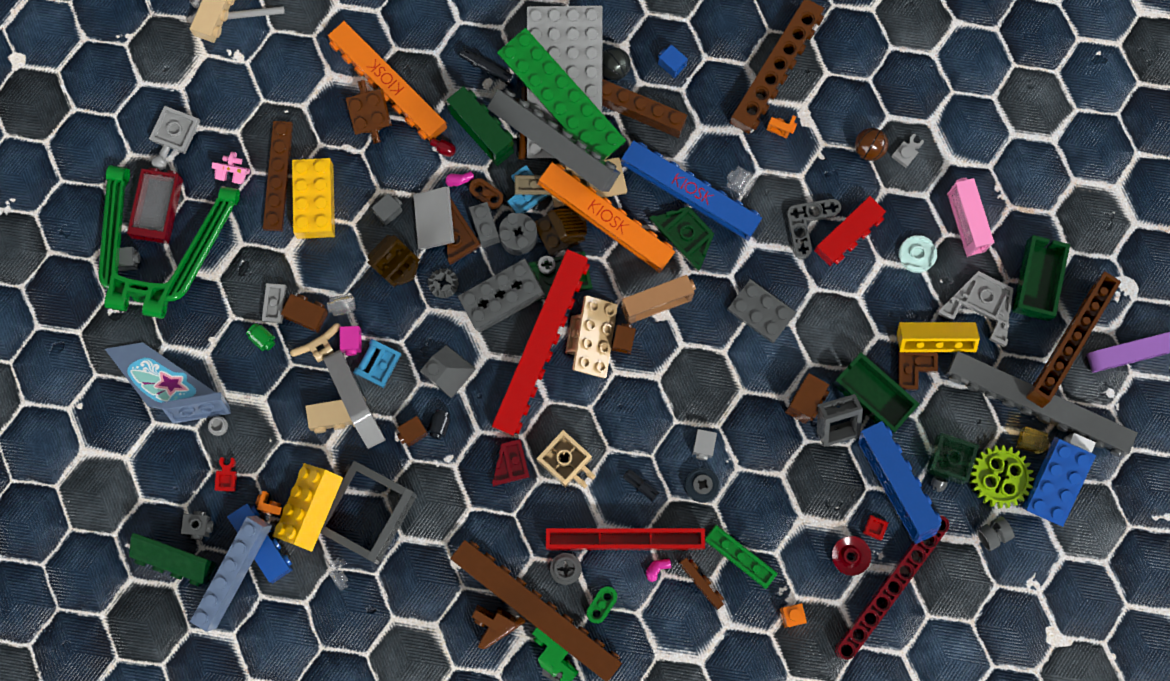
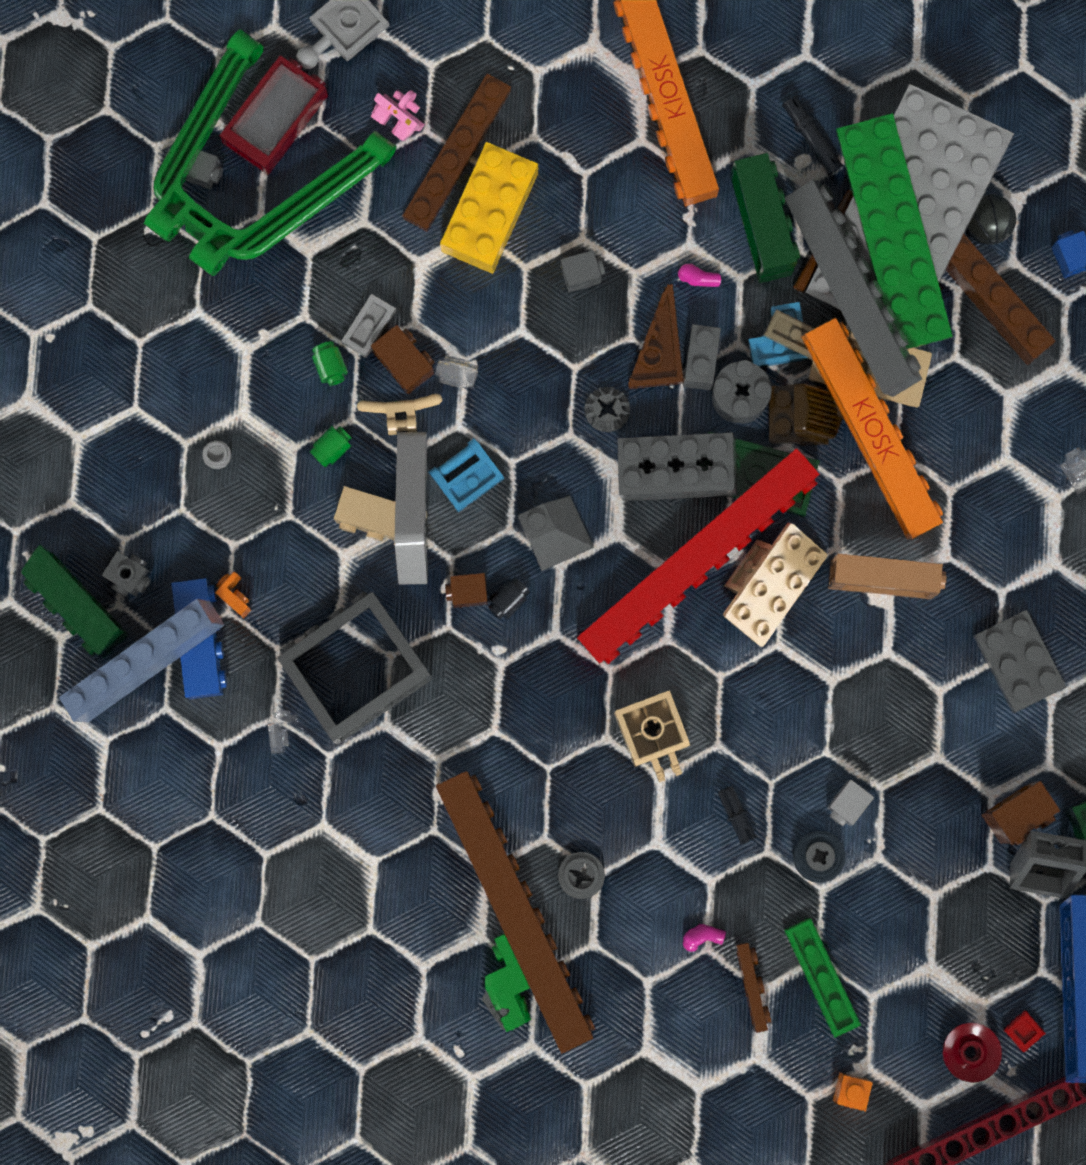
camera: 30 degrees right, 5 degrees up
(166, 385) = (175, 367): sand blue piece -> none
(226, 479) = (194, 531): red plate -> none
(286, 386) = (331, 446): none -> green brick
(307, 506) = (282, 623): yellow brick -> none
(350, 340) = (446, 426): dark pink brick -> none
(368, 111) = (621, 123): reddish brown plate -> none
(394, 261) = (555, 347): dark brown piece -> none
(433, 218) = (637, 314): light grey tile -> none
(444, 147) = (699, 222): dark red cylinder -> none
(487, 193) = (727, 315): reddish brown plate -> none
(497, 624) = (455, 905): reddish brown piece -> none
(510, 464) = (577, 699): dark red wing -> none
(550, 260) = (766, 451): light grey bush -> none
(602, 605) = (604, 946): green plate -> none
(624, 338) = (813, 606): reddish brown brick -> none
(625, 538) = (680, 877): red brick -> none
(686, 233) = (970, 504): dark green wing -> none
(691, 190) = (1007, 447): blue brick -> none

